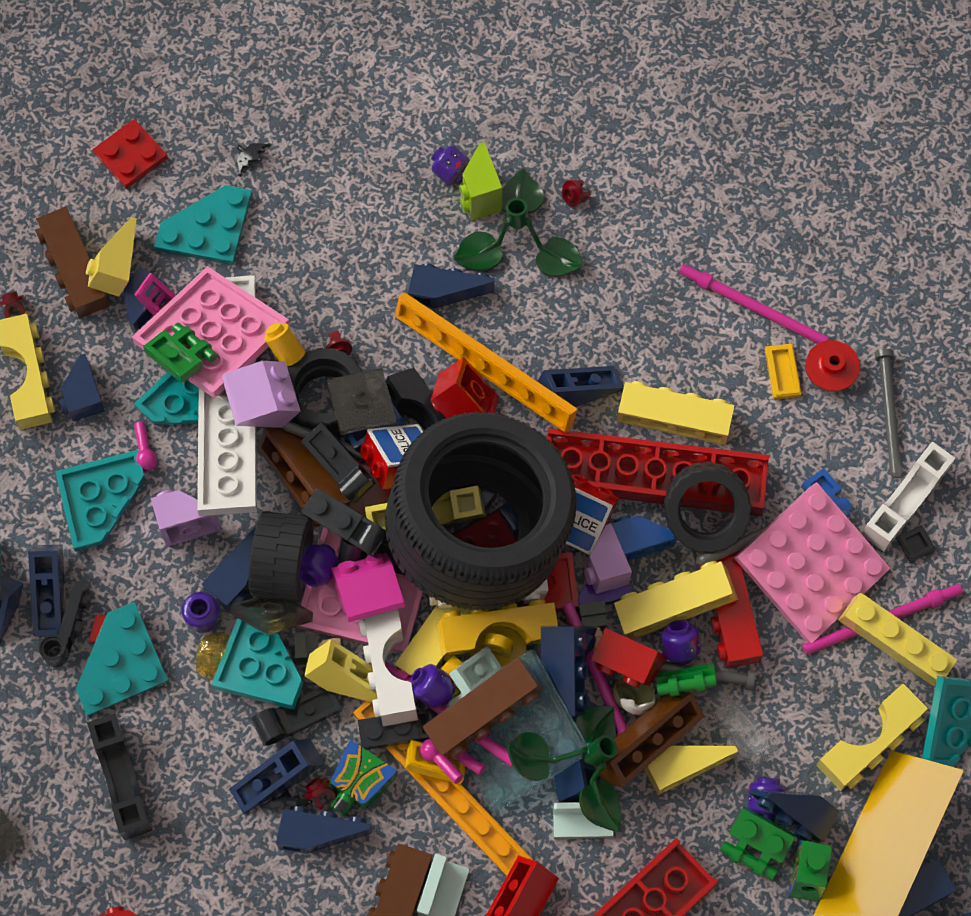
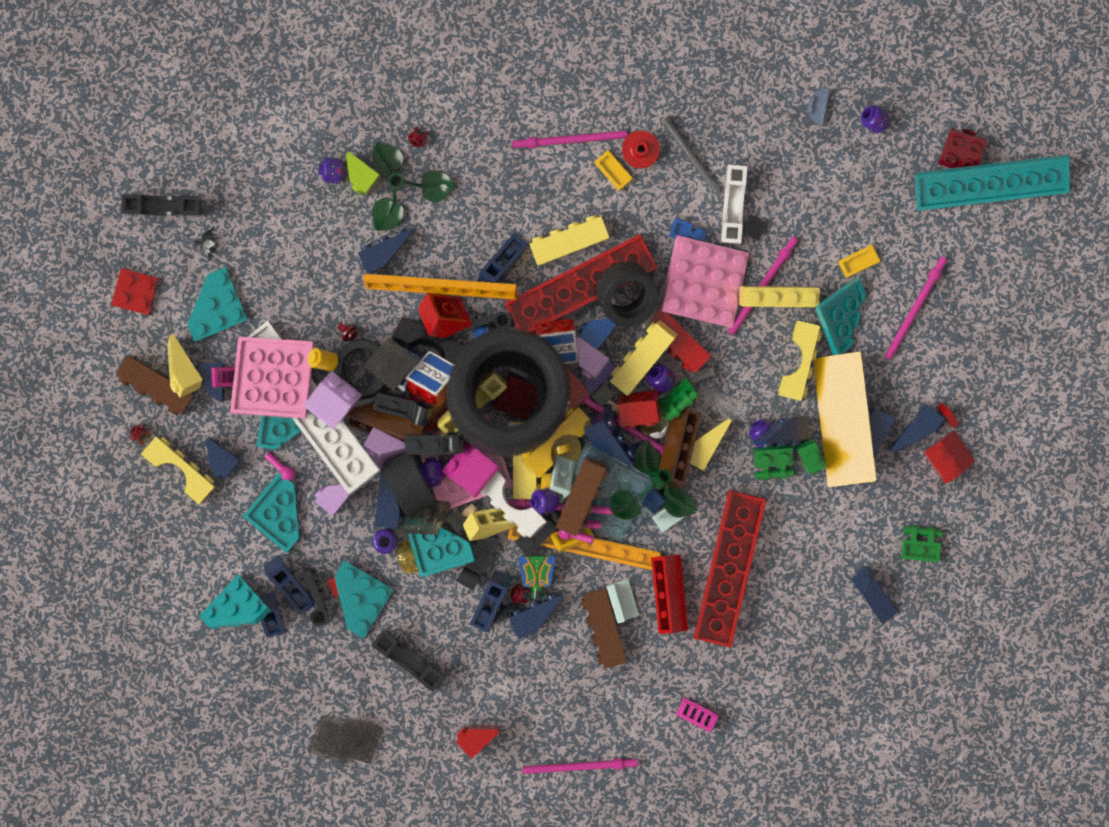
camera: 30 degrees left, 20 degrees up
(174, 356) = (266, 411): green plate -> none
(208, 67) = (161, 205): none -> black arch
(278, 492) = (383, 447): none -> lavender slope

